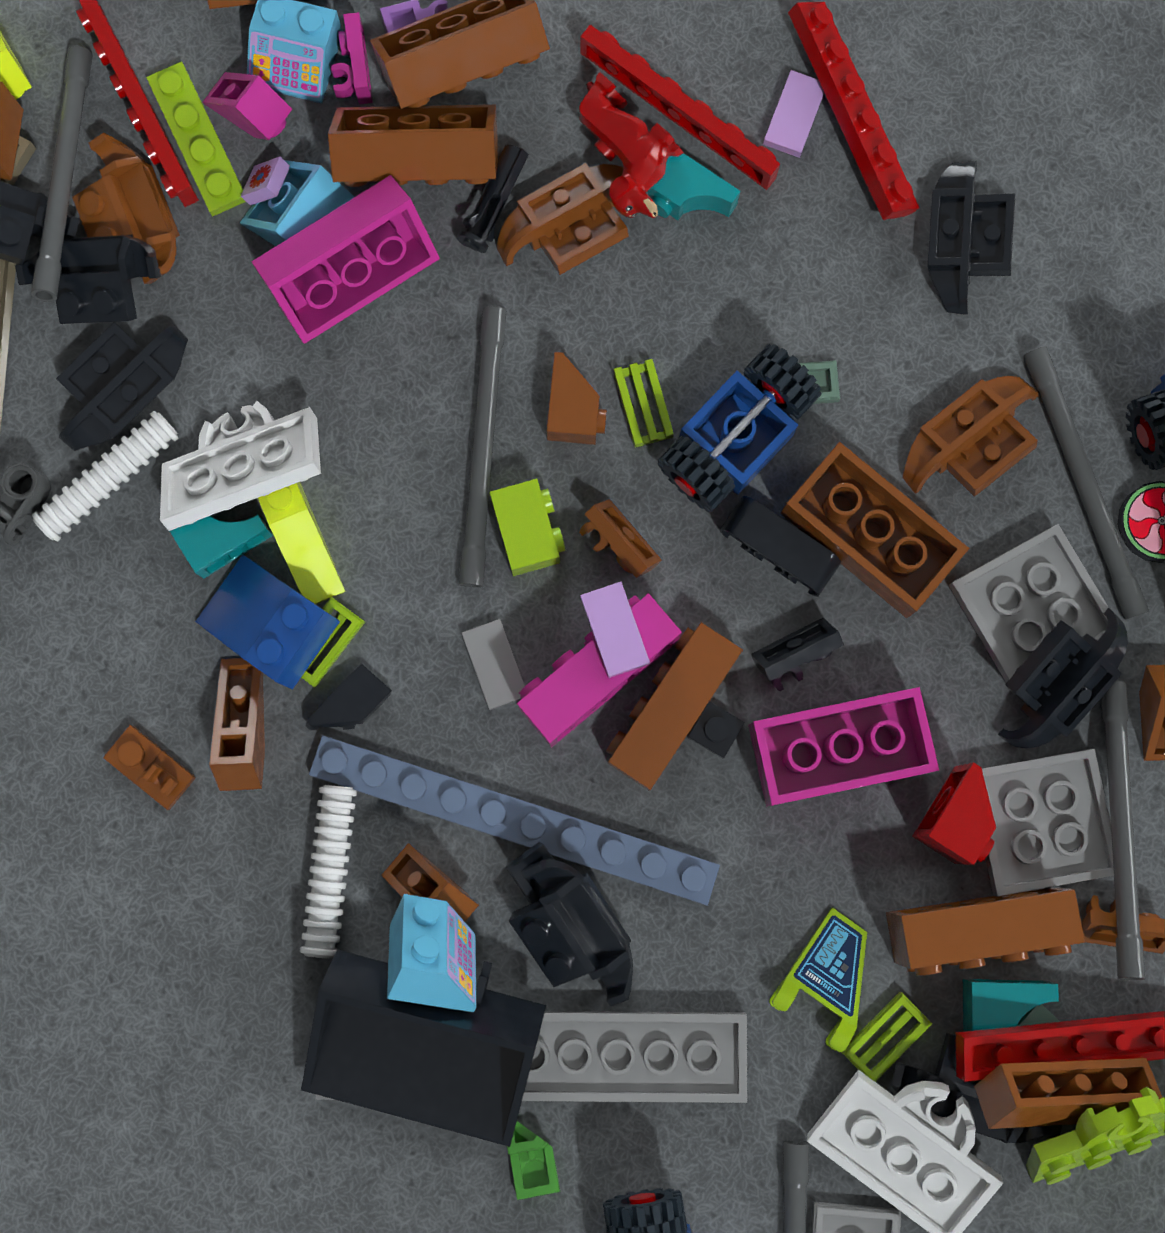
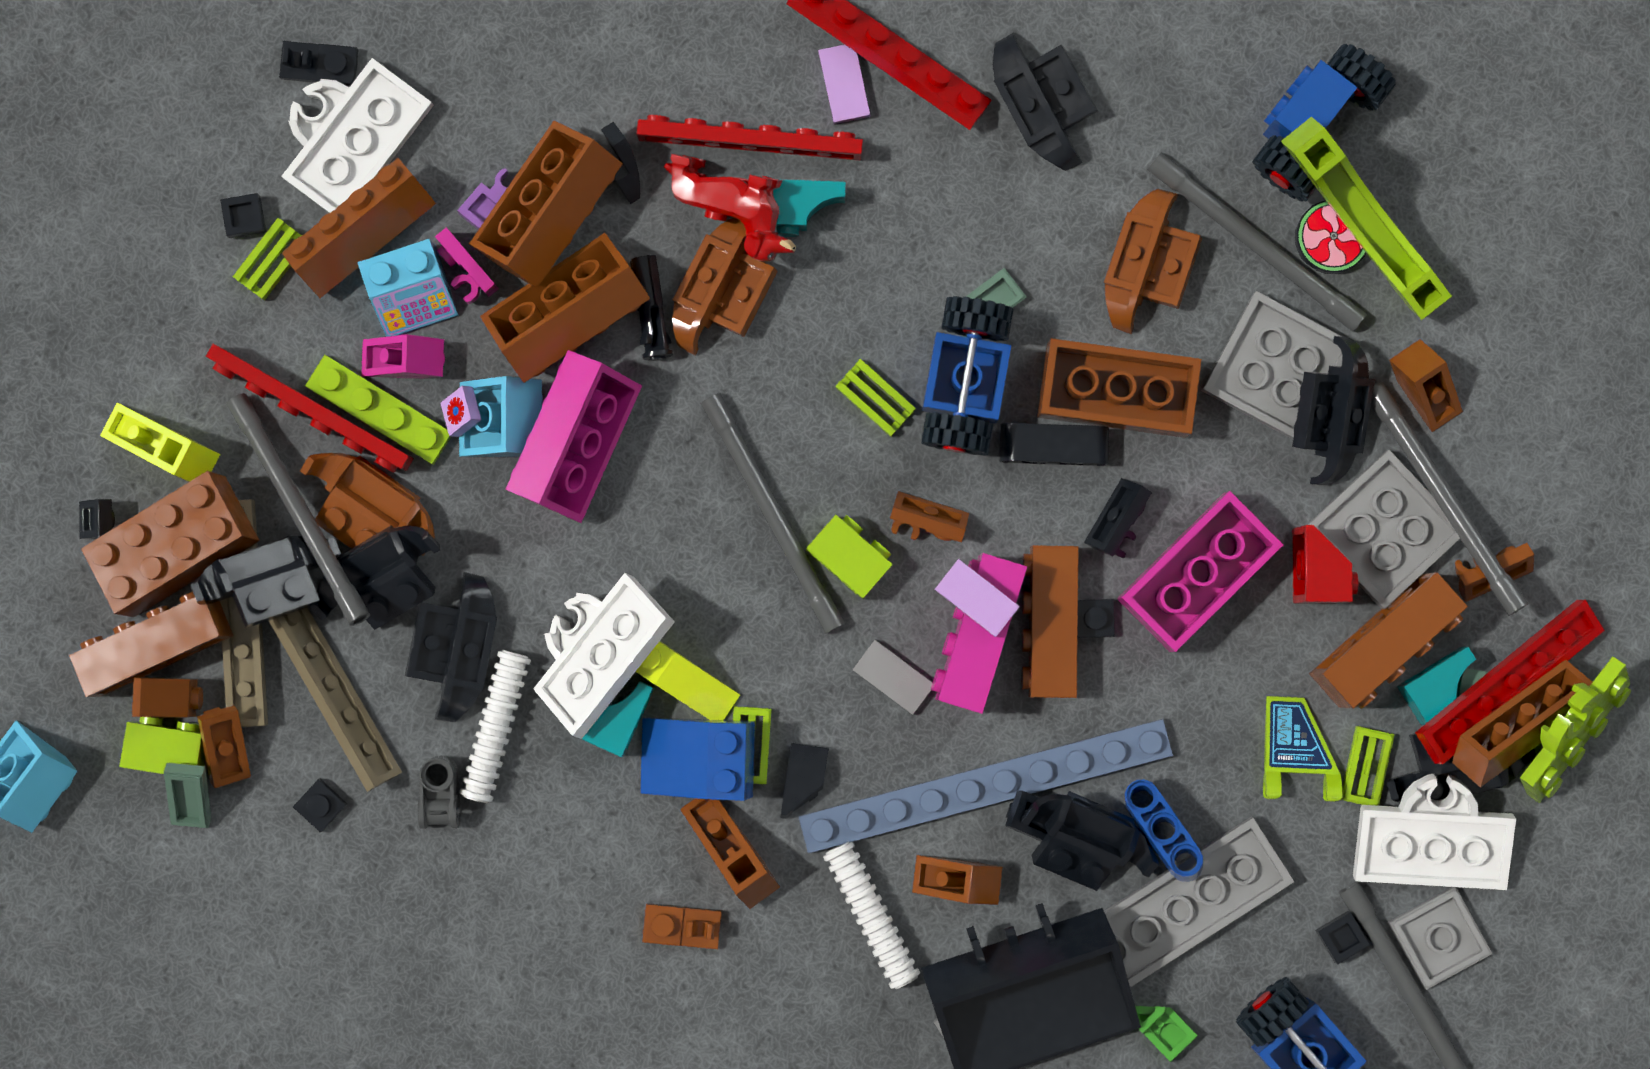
camera: 35 degrees left, 5 degrees up
(431, 955) = (996, 926): medium azure slope -> none
(549, 70) = (628, 174): none -> black slope
(573, 406) = (823, 436): dark orange slope -> none
(656, 949) = (1159, 812): none -> blue beam
(760, 1188) = (1342, 937): none -> black plate

